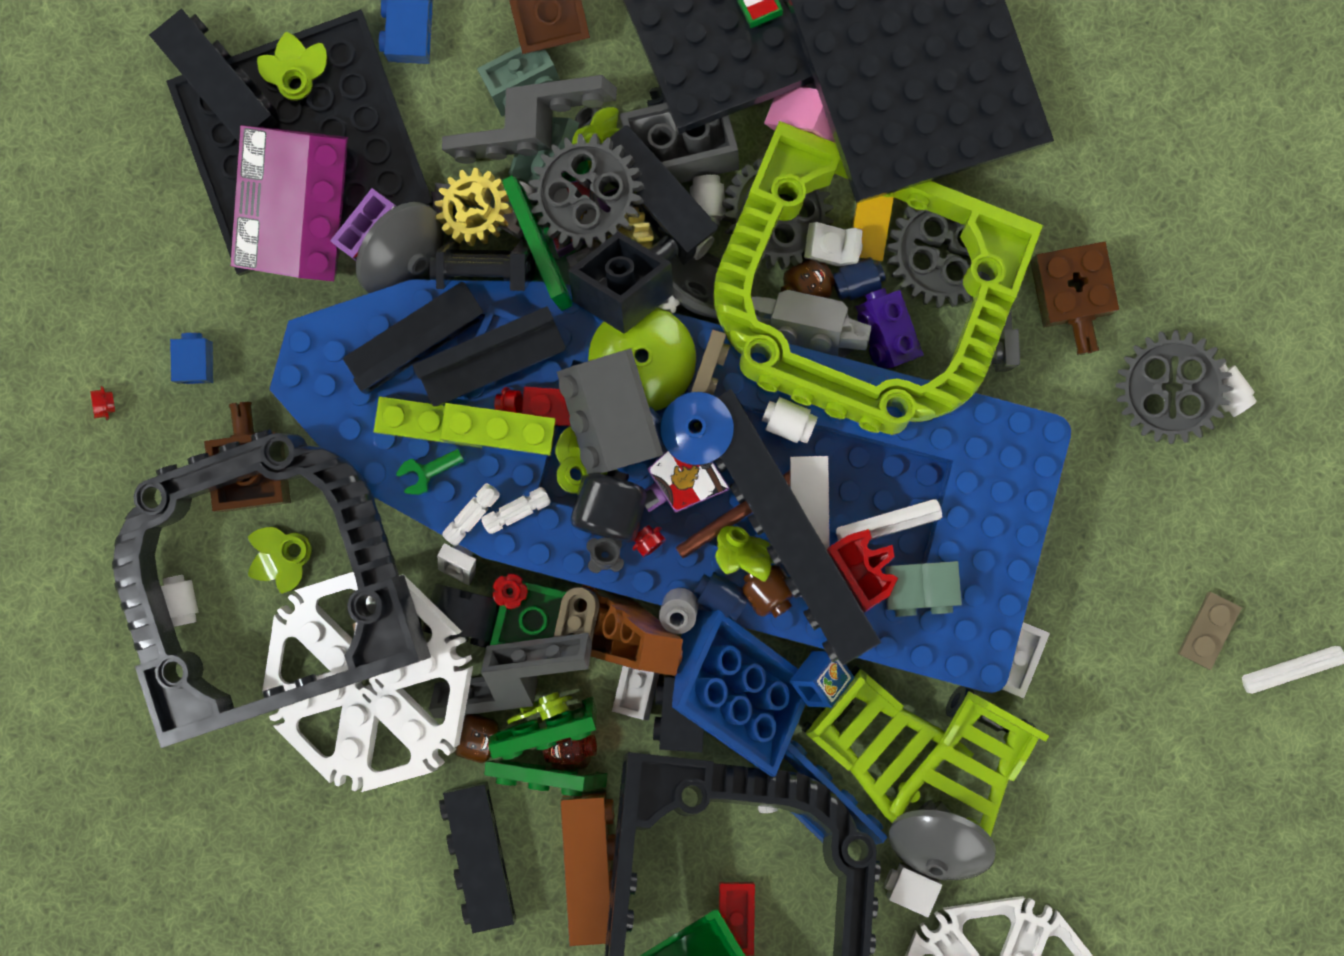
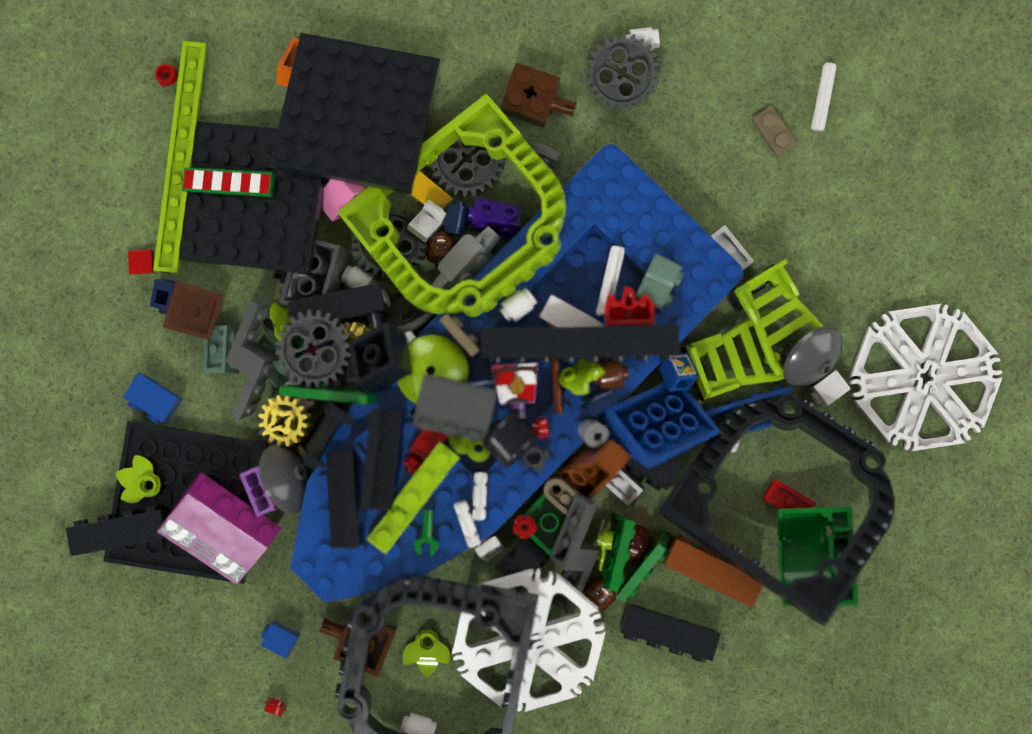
camera: 60 degrees left, 0 degrees up
(710, 441) = (505, 362): blue dish -> none

